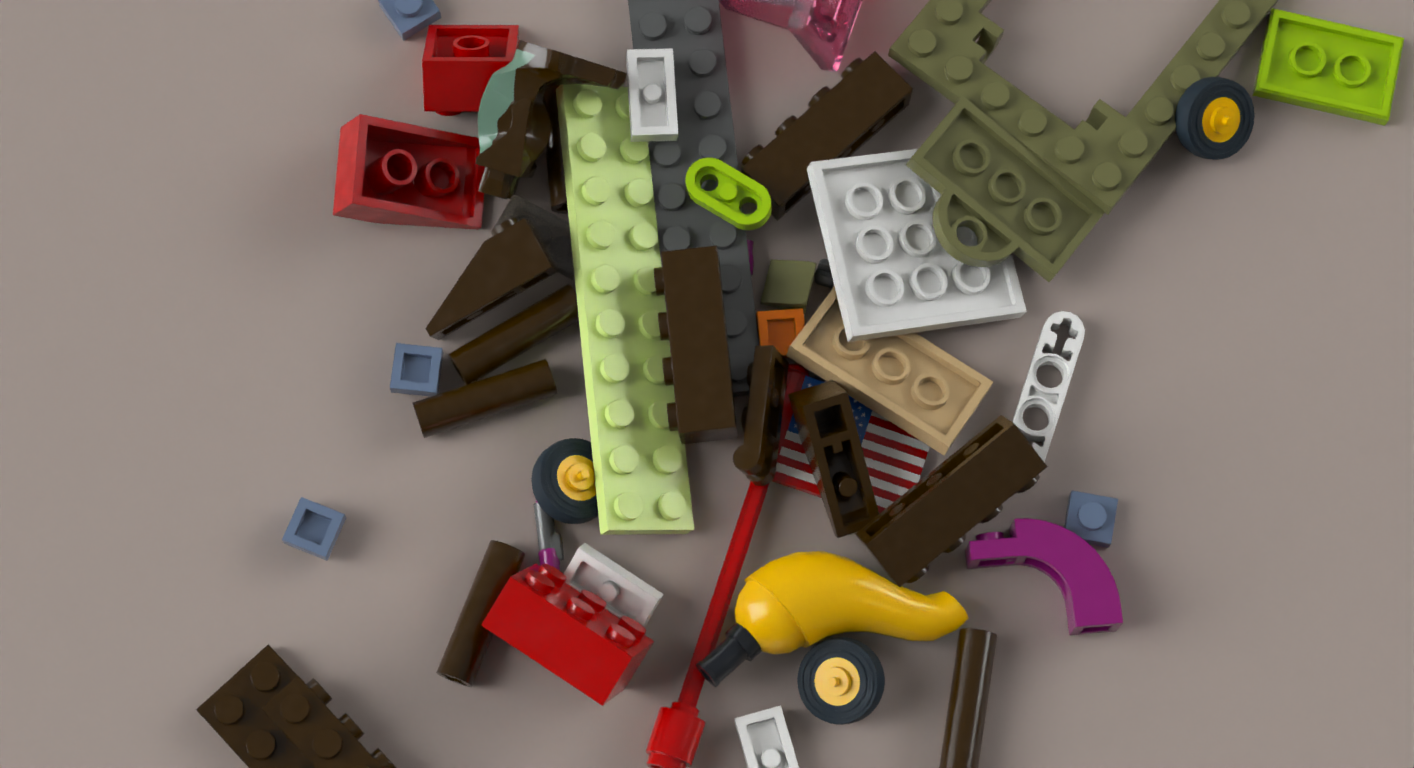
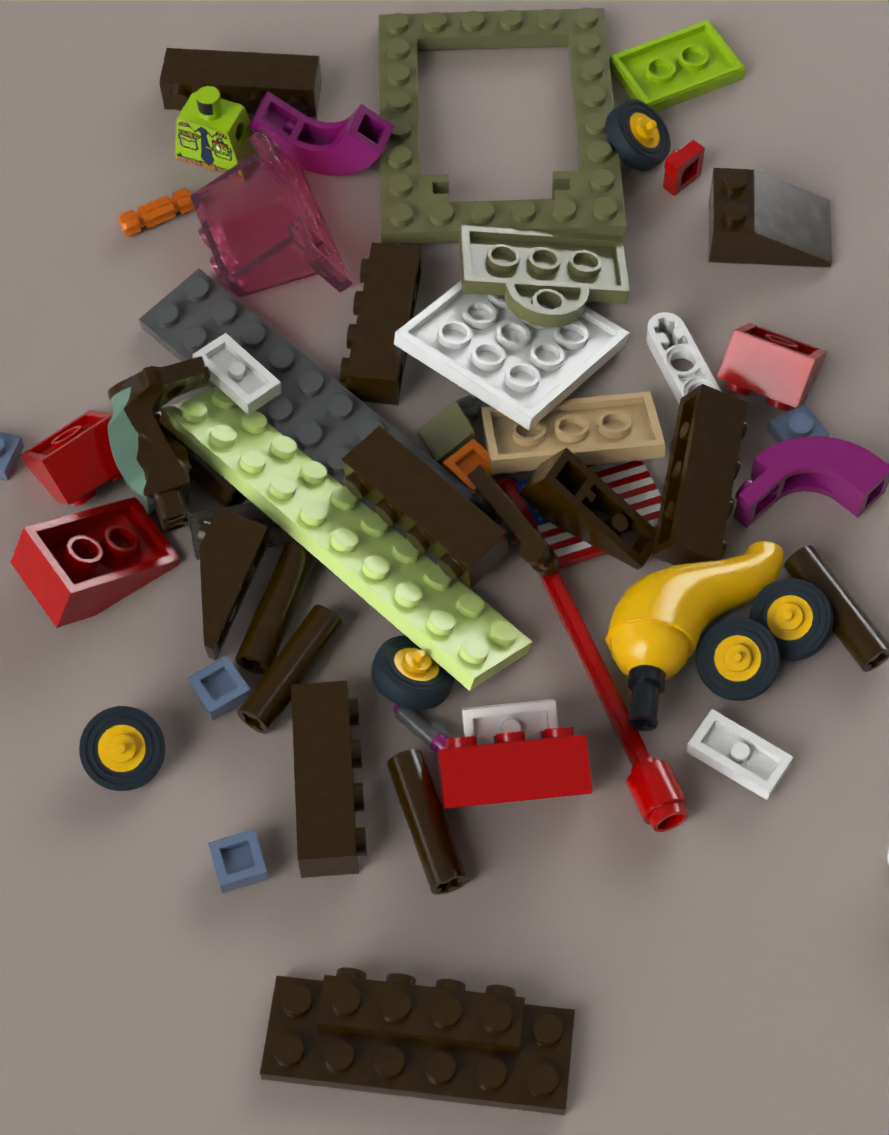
camera: 35 degrees left, 15 degrees down
(299, 364) = (122, 748): none -> black wheel
(433, 514) = (325, 779): none -> dark brown brick
(730, 194) = (353, 395): lime plate -> none
(918, 683) = (795, 616): none -> black wheel
(1123, 439) = (770, 366): none -> slope
(1228, 181) = (683, 167): none -> red plate
(1255, 297) = (766, 221): none -> dark brown slope

